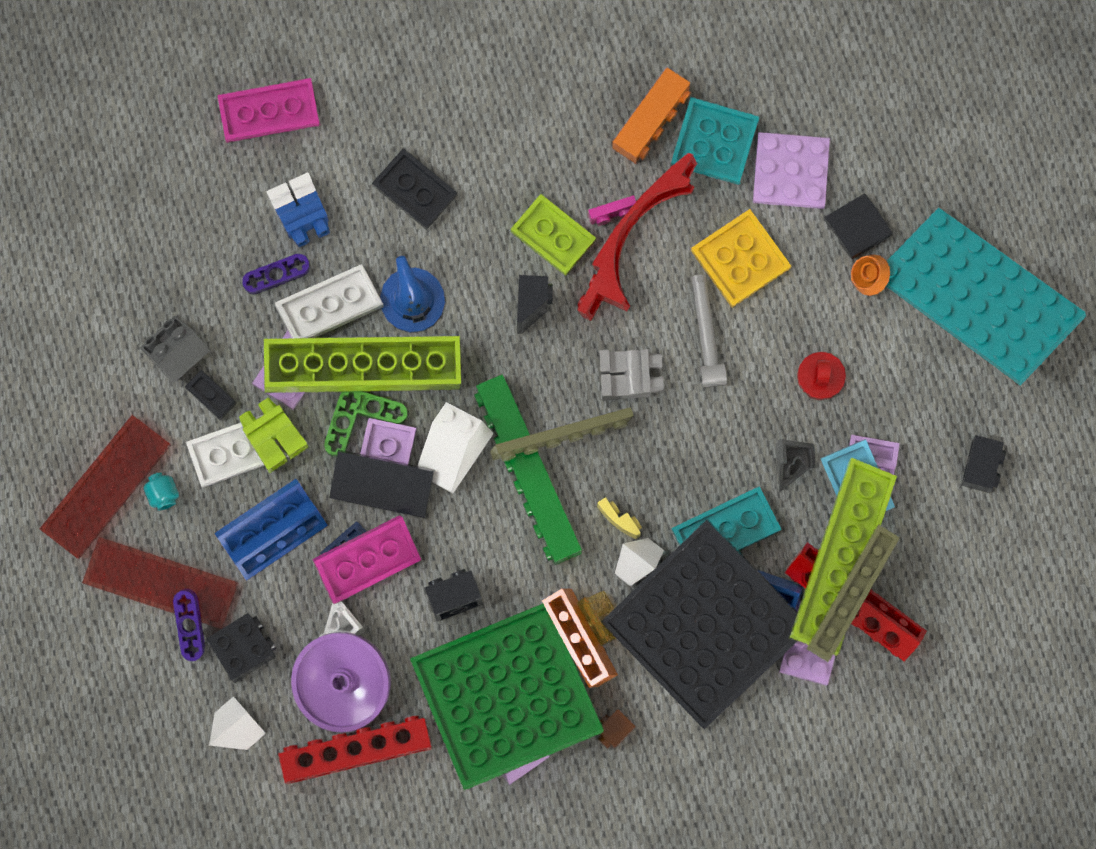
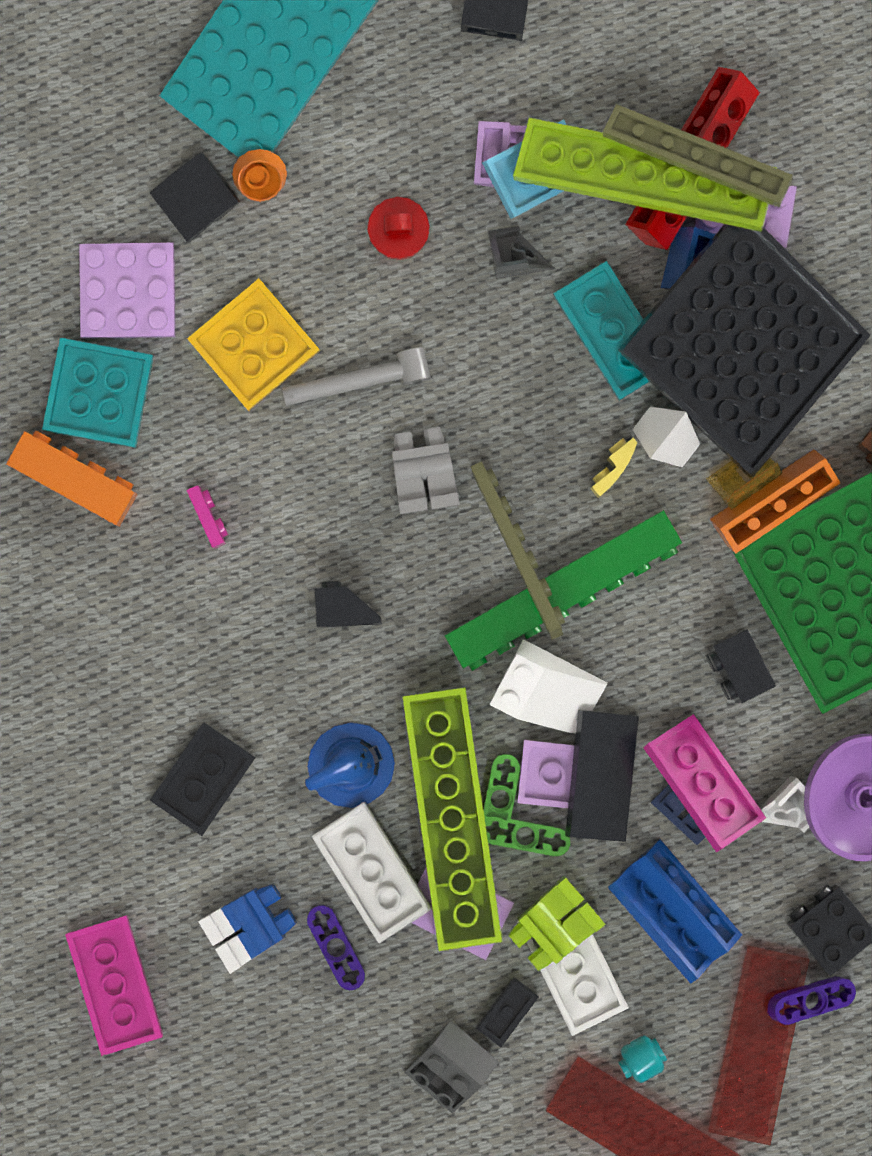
camera: 95 degrees left, 10 degrees up
(553, 234) = (246, 591): lime plate -> none
(606, 283) = (306, 513): red slope -> none

